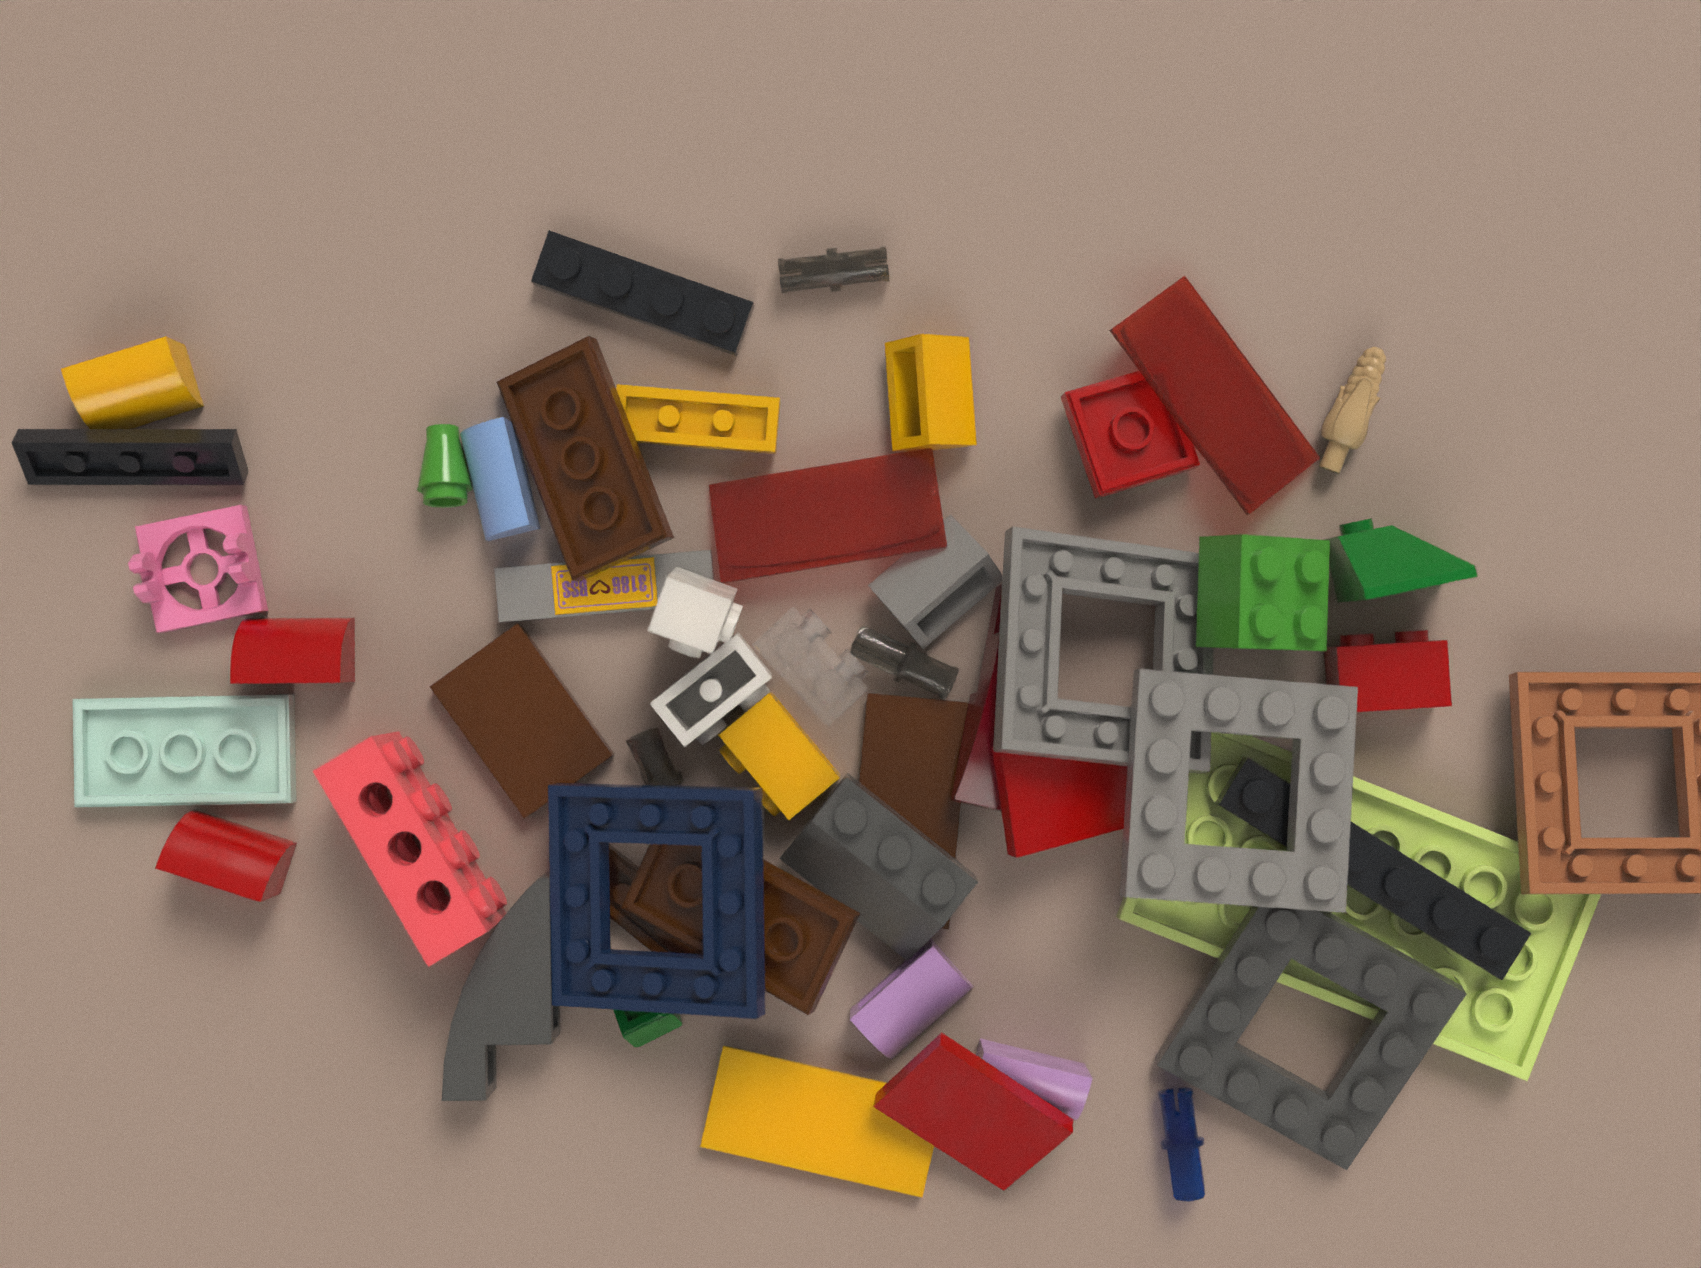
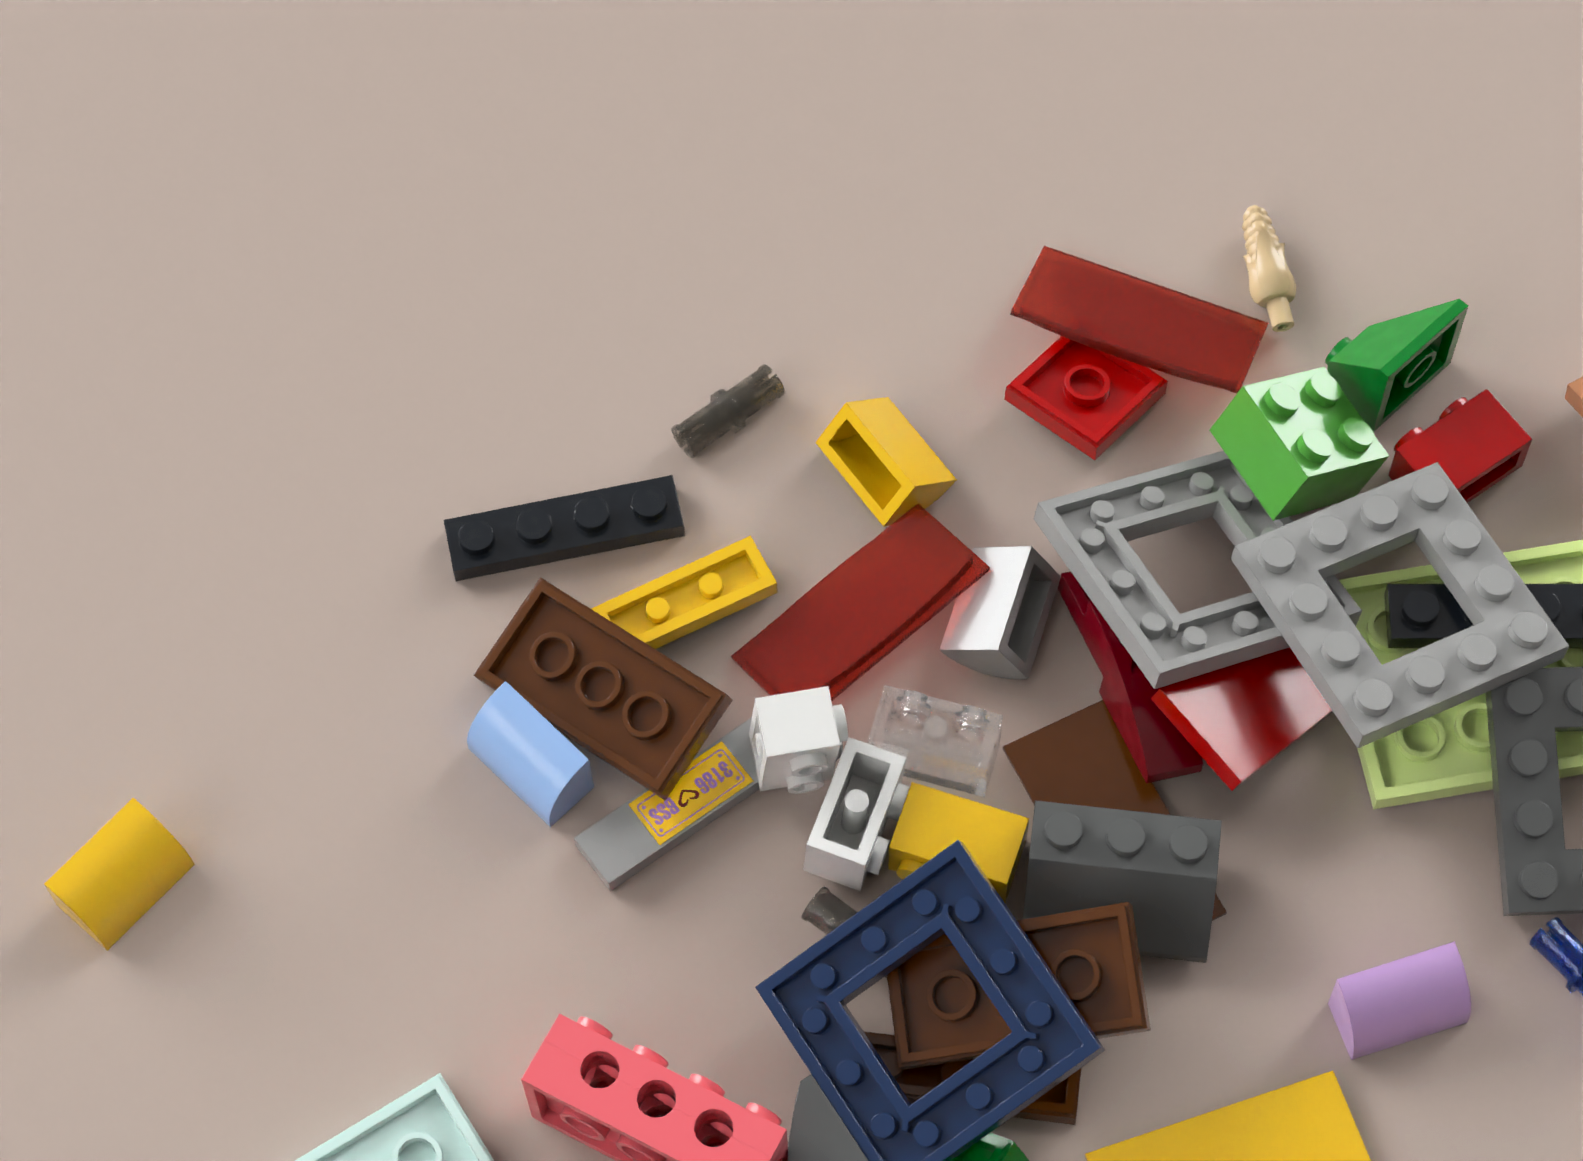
camera: 30 degrees left, 25 degrees down
(130, 456) = (152, 938): black plate -> none
(241, 566) = (282, 1068): bright pink piece -> none
(293, 651) = (425, 1031): red brick -> none
(444, 471) = (472, 779): bright green cone -> none
(521, 719) = (685, 964): reddish brown tile -> none
(904, 662) = (1023, 695): clear smoke axle -> none
(909, 1000) = (1237, 996): lavender brick -> none
(973, 1112) = (1367, 1049): red tile -> none

